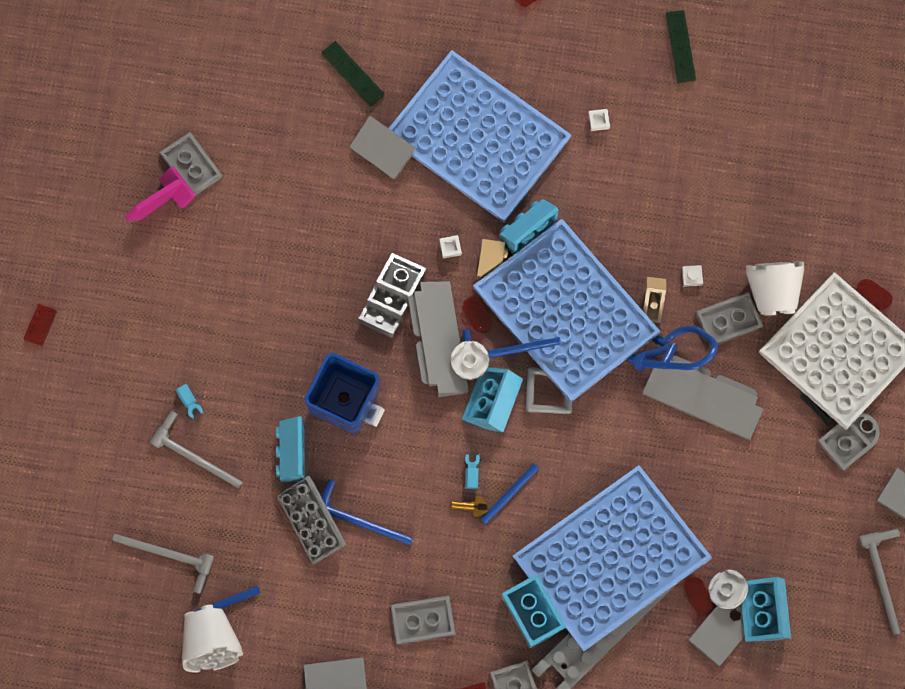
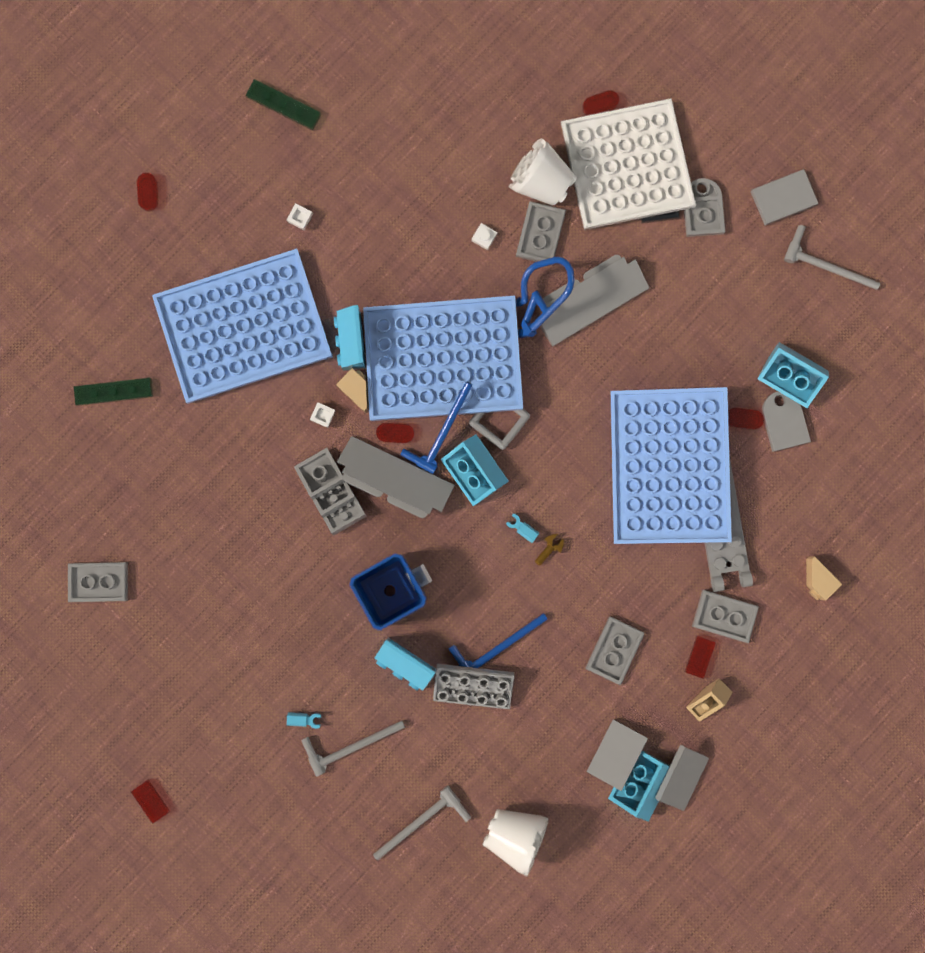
camera: 60 degrees left, 10 degrees up
(174, 187) = (109, 609): dark pink piece -> none
(235, 598) = (491, 802): blue bar -> none
(382, 147) = (197, 411): light grey tile -> none
(469, 360) = (431, 466): white tile -> none
(509, 494) = (561, 510): blue bar -> none
(533, 611) = (671, 559): medium azure slope -> none
(654, 298) = (482, 280): tan slope -> none
(728, 589) = (757, 392): white tile -> none

